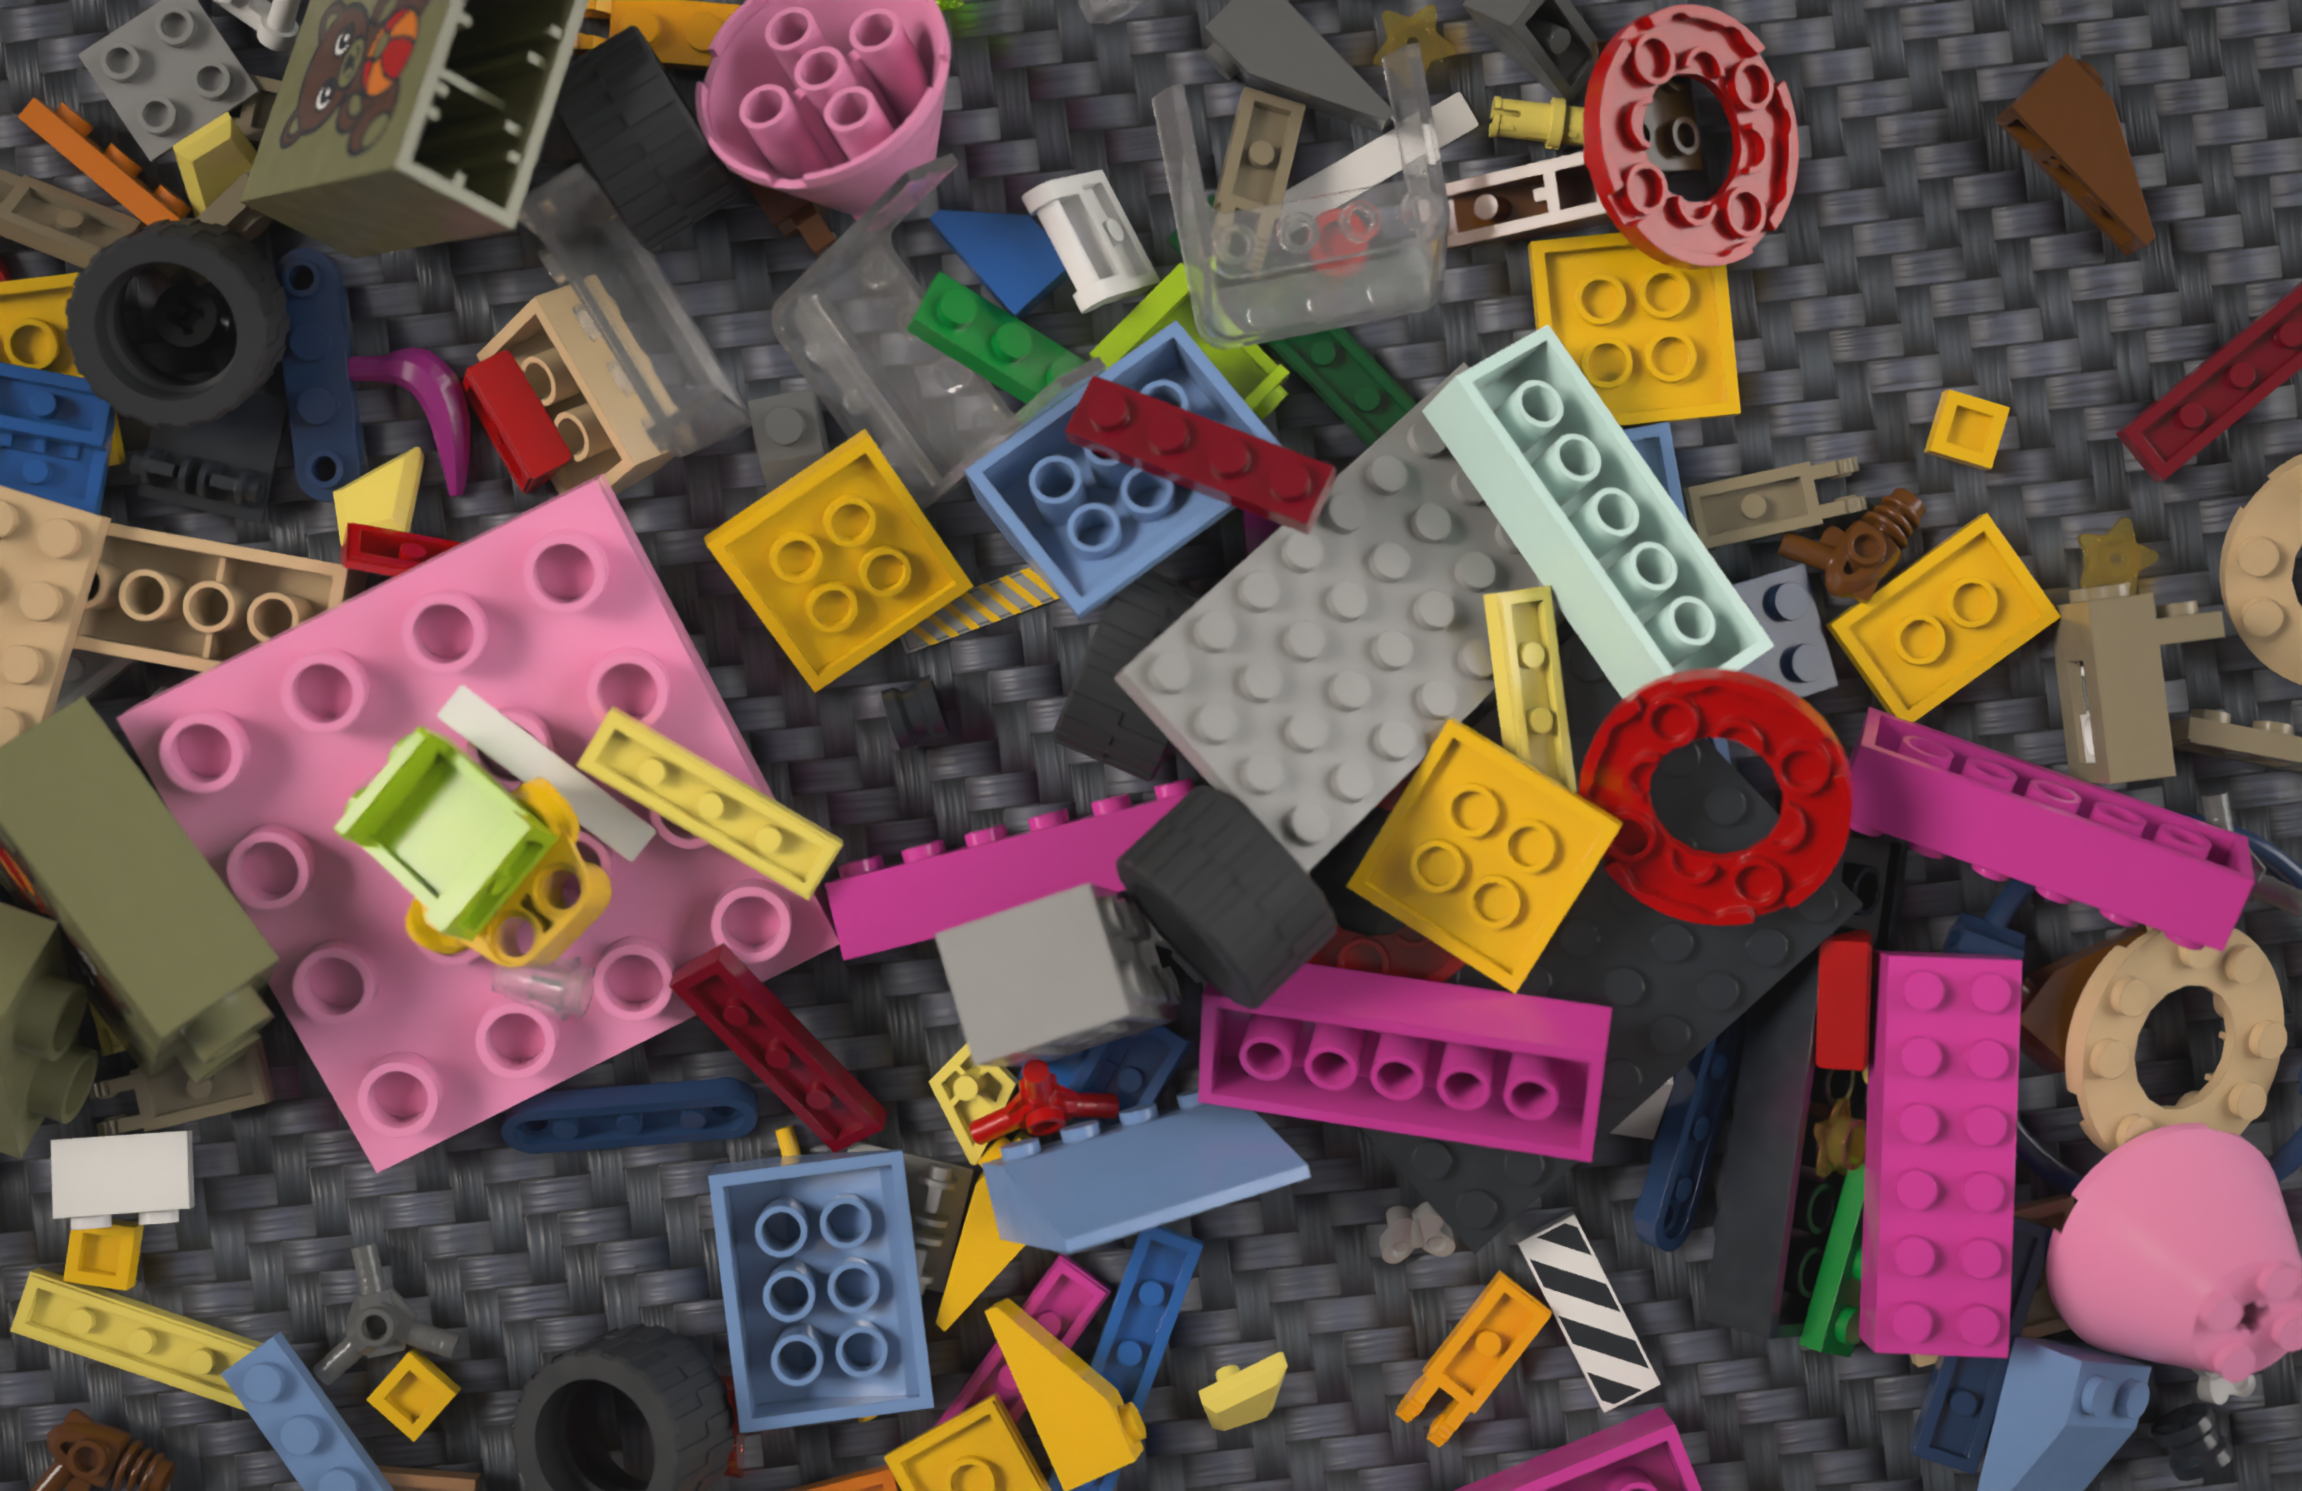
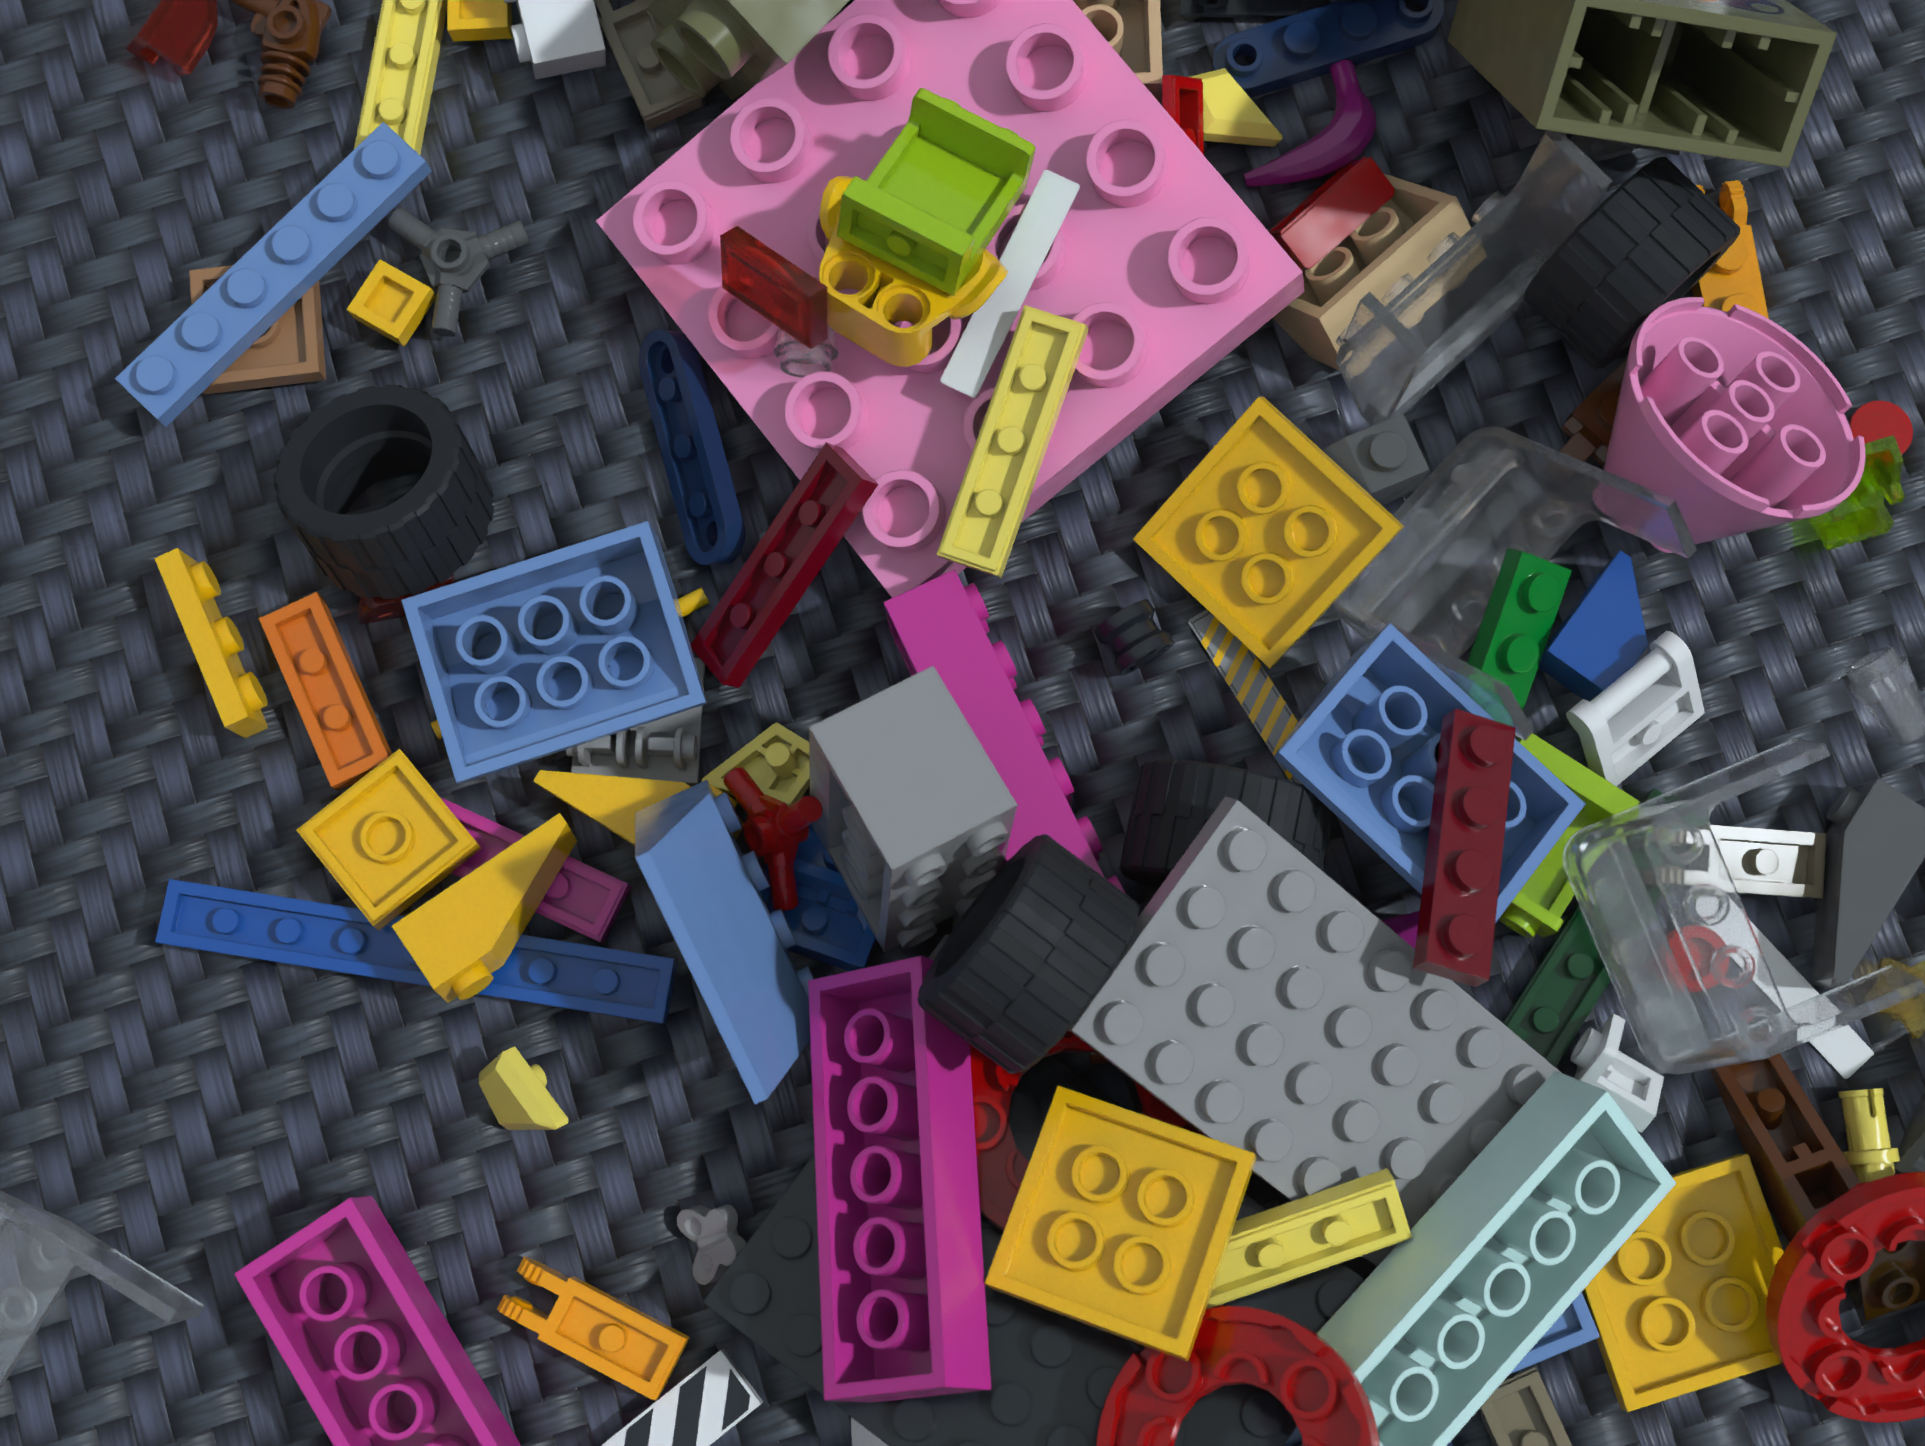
camera: 85 degrees right, 10 degrees down
(505, 1011) = (774, 287): none -> clear red tile
(1437, 347) = (1627, 1081): none -> white bracket

